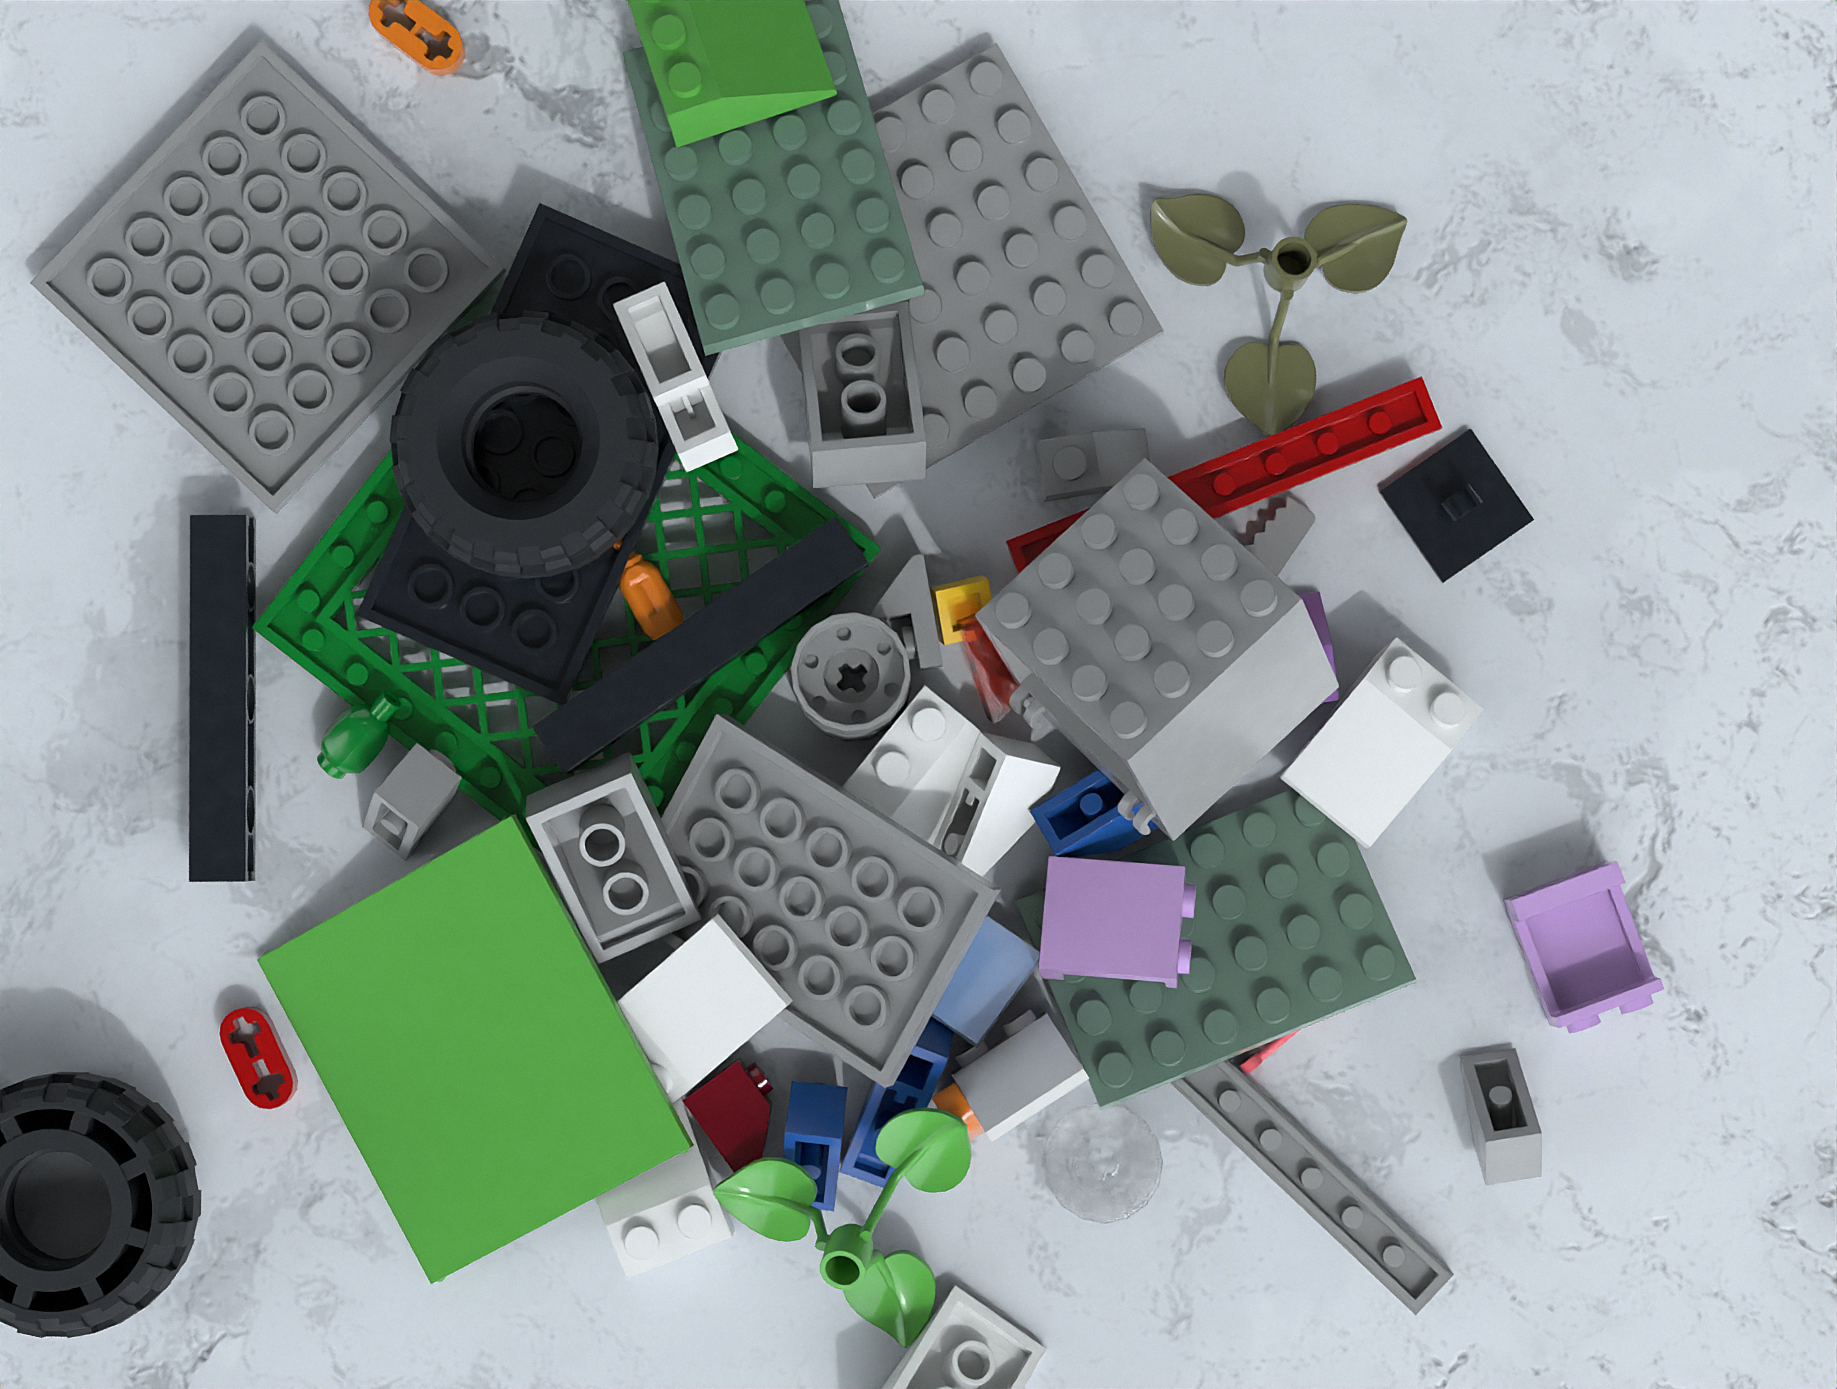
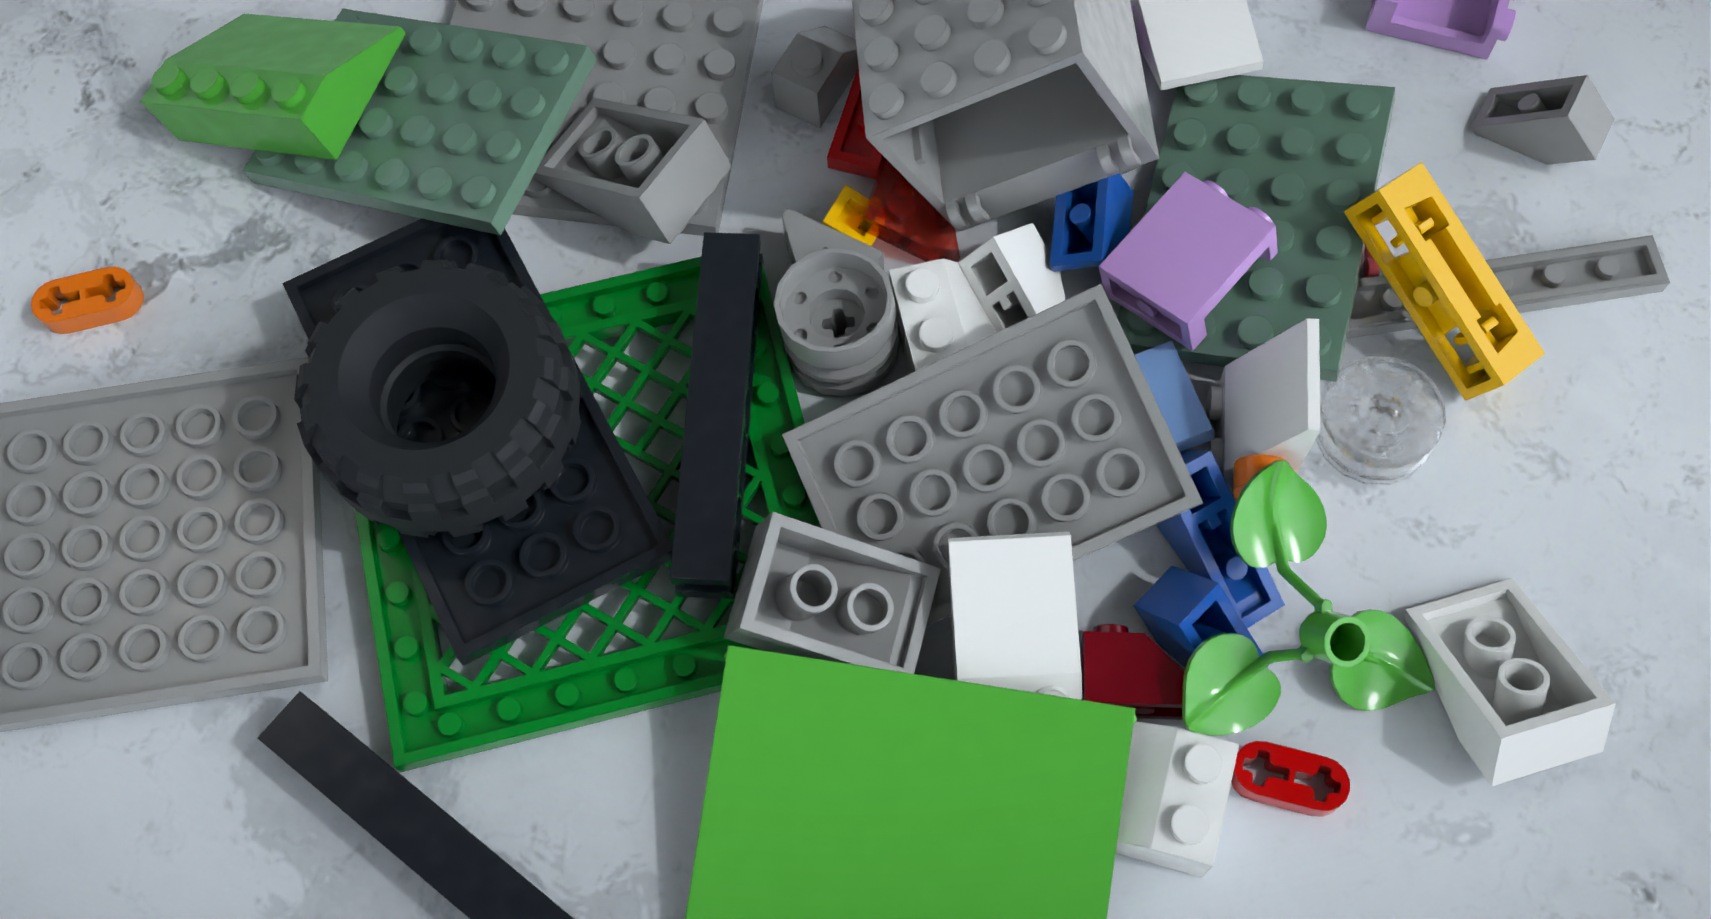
camera: 45 degrees left, 20 degrees down
(357, 736) = (558, 748): green plant -> none
(411, 800) = (648, 741): light grey slope -> none
(649, 596) = (645, 427): orange piece -> none
(675, 377) = (549, 271): white slope -> none
(763, 1279) = (1285, 792): none -> red beam
(1287, 1070) = (1445, 282): none -> yellow brick

